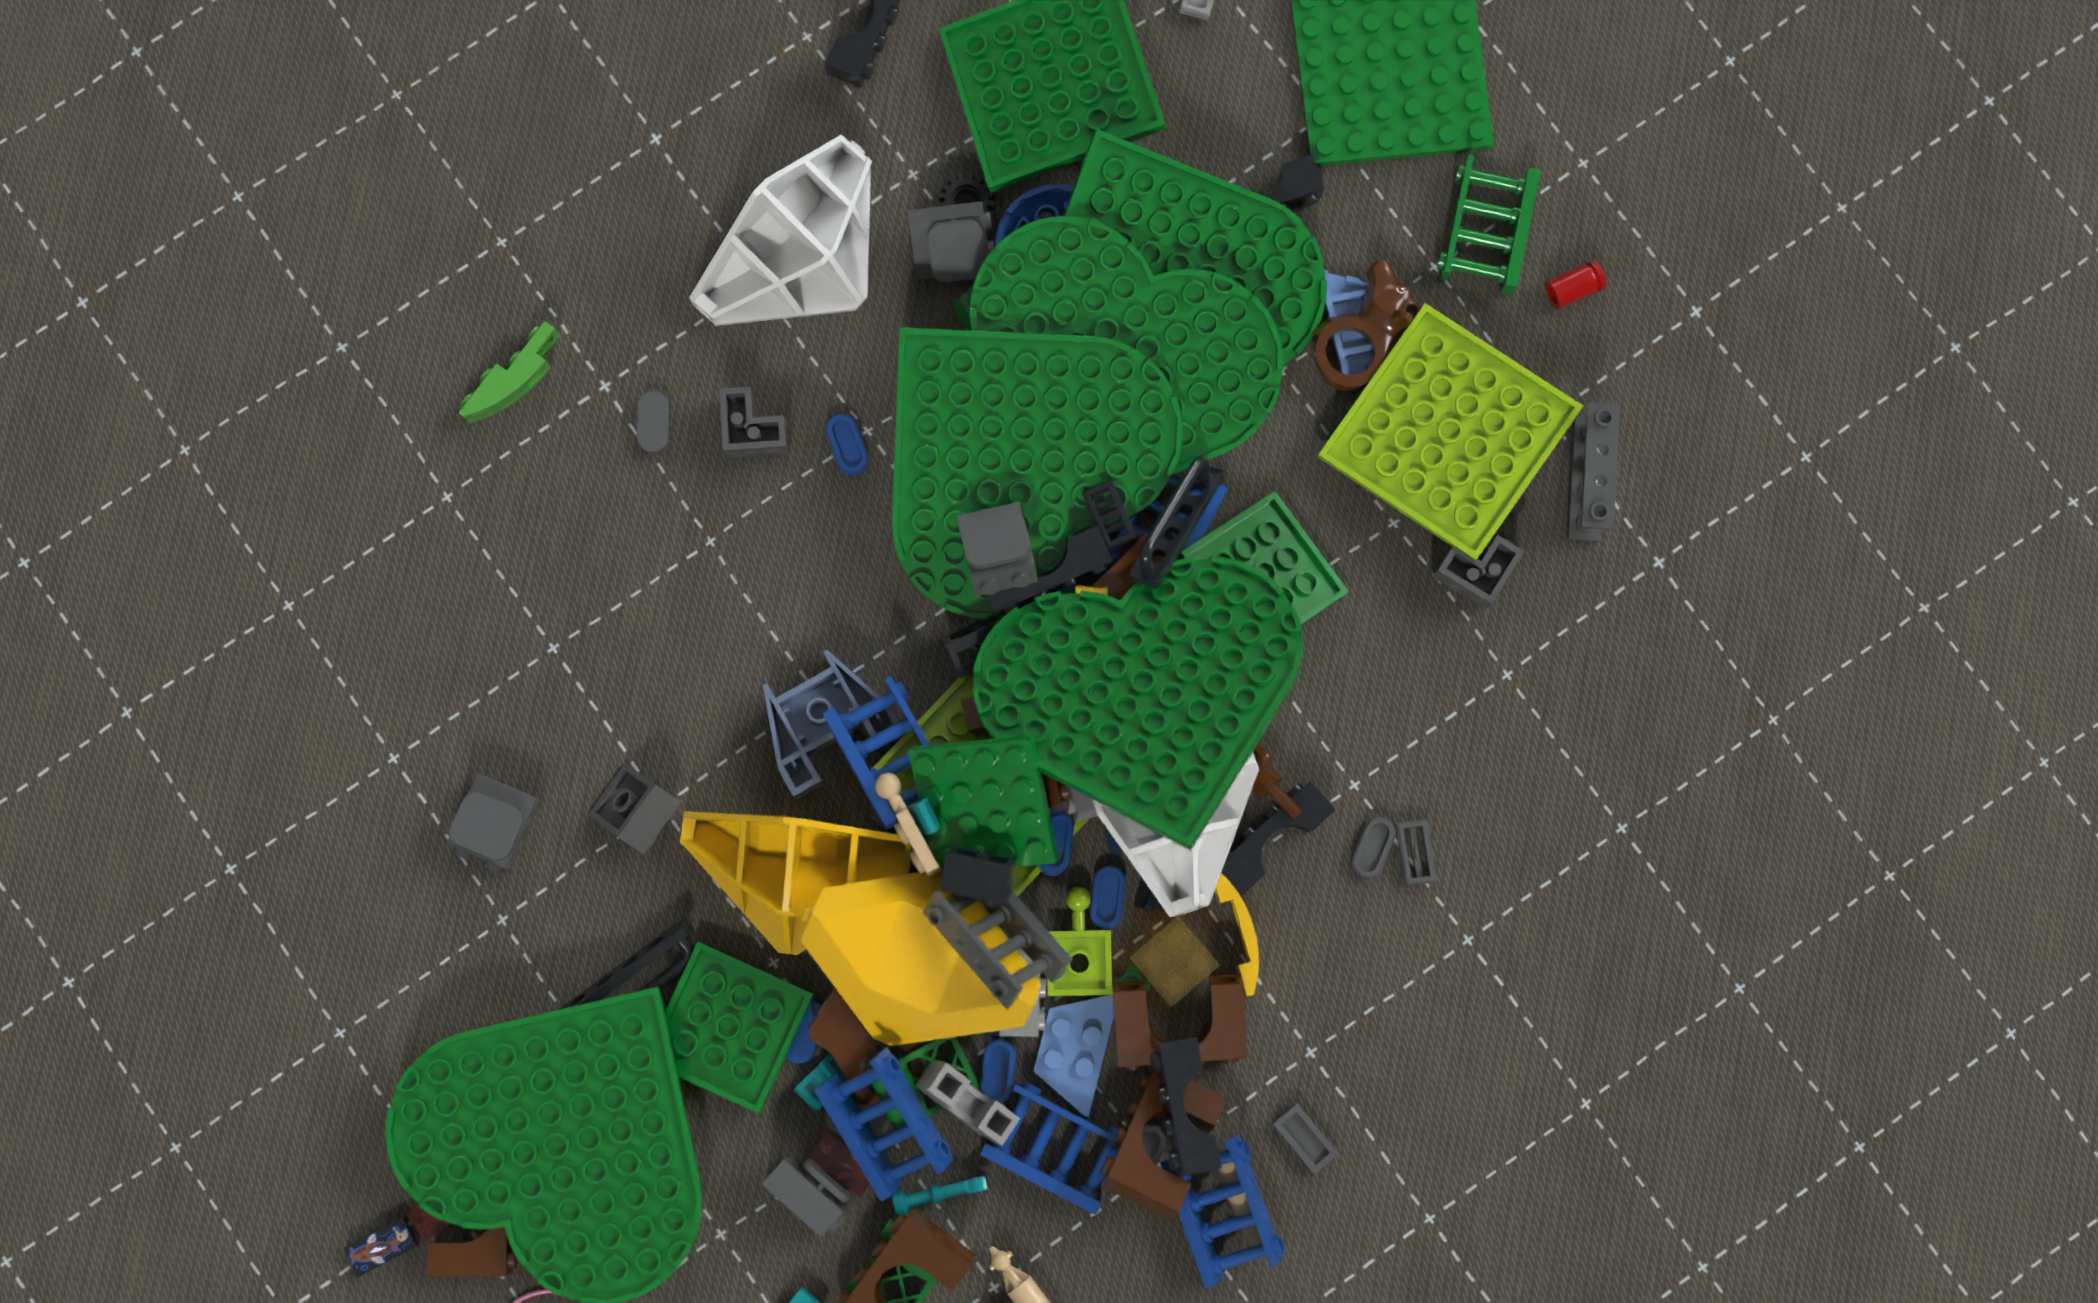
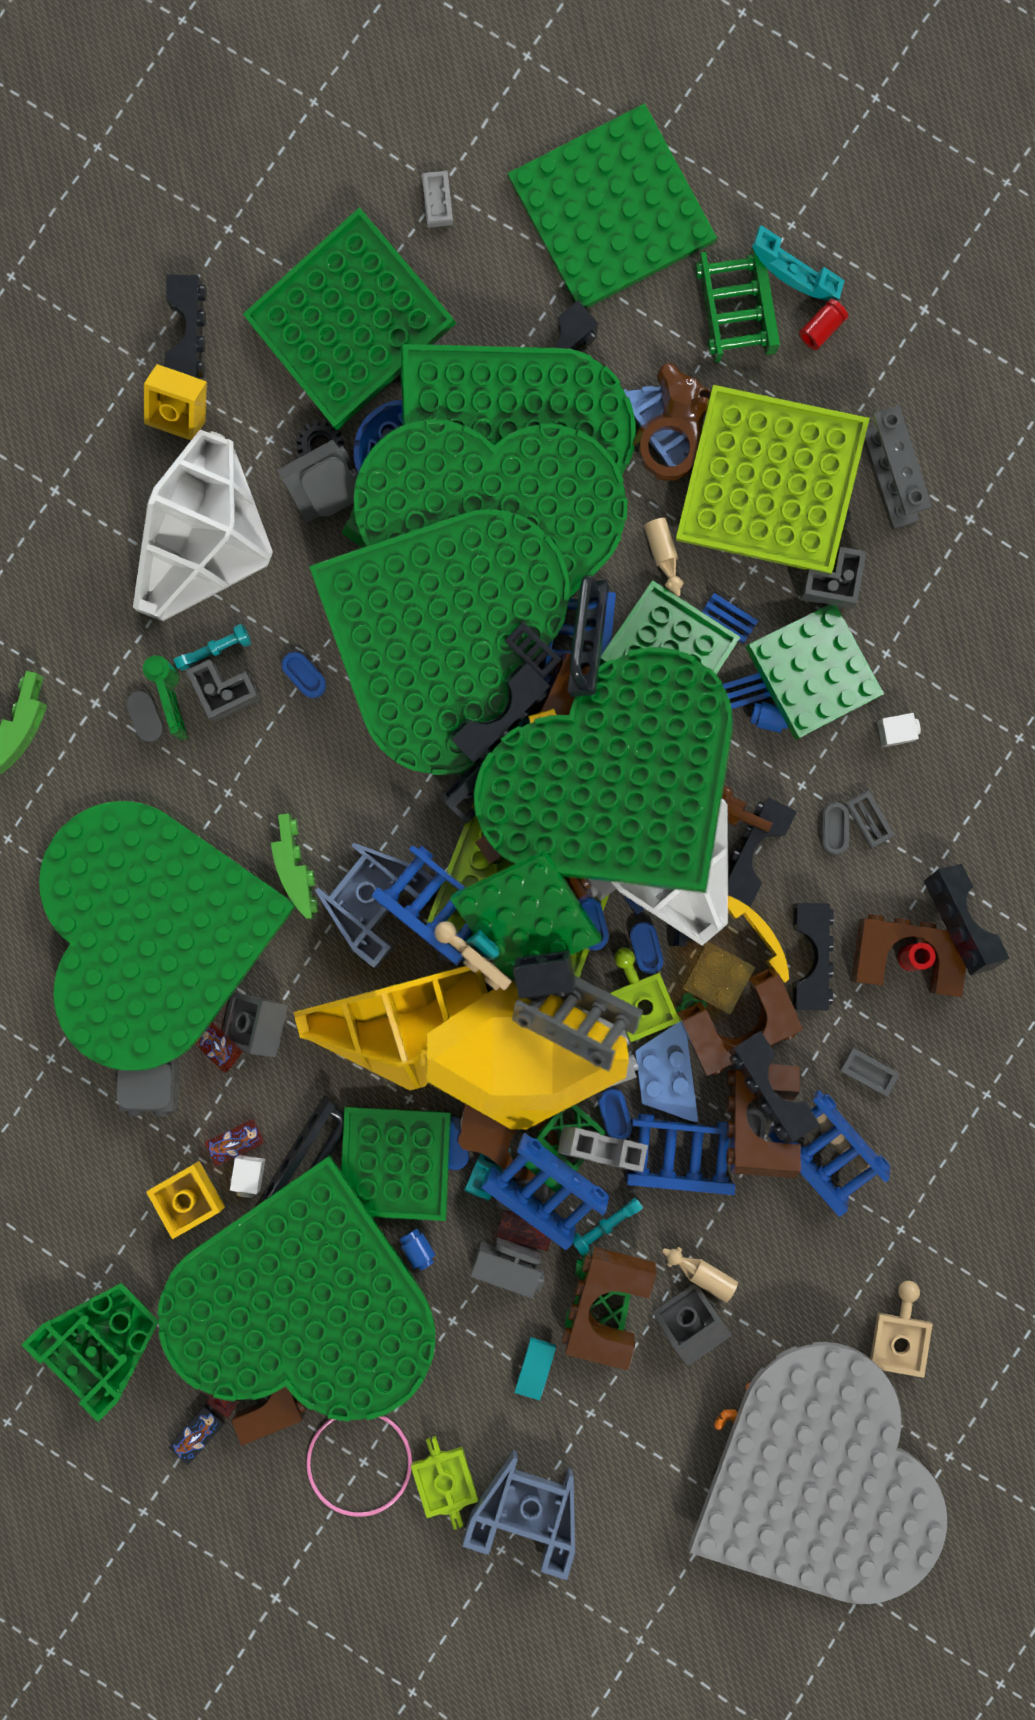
camera: 20 degrees left, 5 degrees up
(311, 1098) = (96, 1346): none -> green wedge
(478, 973) = (185, 1199): none -> yellow brick
(558, 975) = (247, 1175): none -> white brick
(559, 932) = (234, 1142): none -> tile
(565, 660) = (153, 932): none -> green plate
(584, 818) = (219, 1048): none -> tile
(694, 389) = (166, 677): none -> green piece
(713, 1135) = (417, 1249): none -> blue brick
(746, 664) = (294, 878): none -> bright green slope
(793, 373) = (214, 647): none -> teal piece
(825, 95) = (174, 402): none -> yellow brick
(997, 549) = (456, 712): dark grey brick -> none
(1300, 465) = (664, 551): none -> tan wheel
(1306, 942) = (814, 923): none -> black arch
(1347, 693) = (767, 717): none -> blue brick
(1357, 655) = (748, 679): none -> blue tile
(1369, 580) = (734, 610): none -> blue tile
(1407, 1026) = (916, 957): none -> red piece
(1417, 661) = (814, 670): none -> plate
(1447, 1028) = (878, 936): none -> reddish brown arch
(1479, 1042) = (978, 948): none -> black arch
(1487, 764) = (898, 729): none -> white brick
(1564, 215) = (793, 272): none -> teal slope

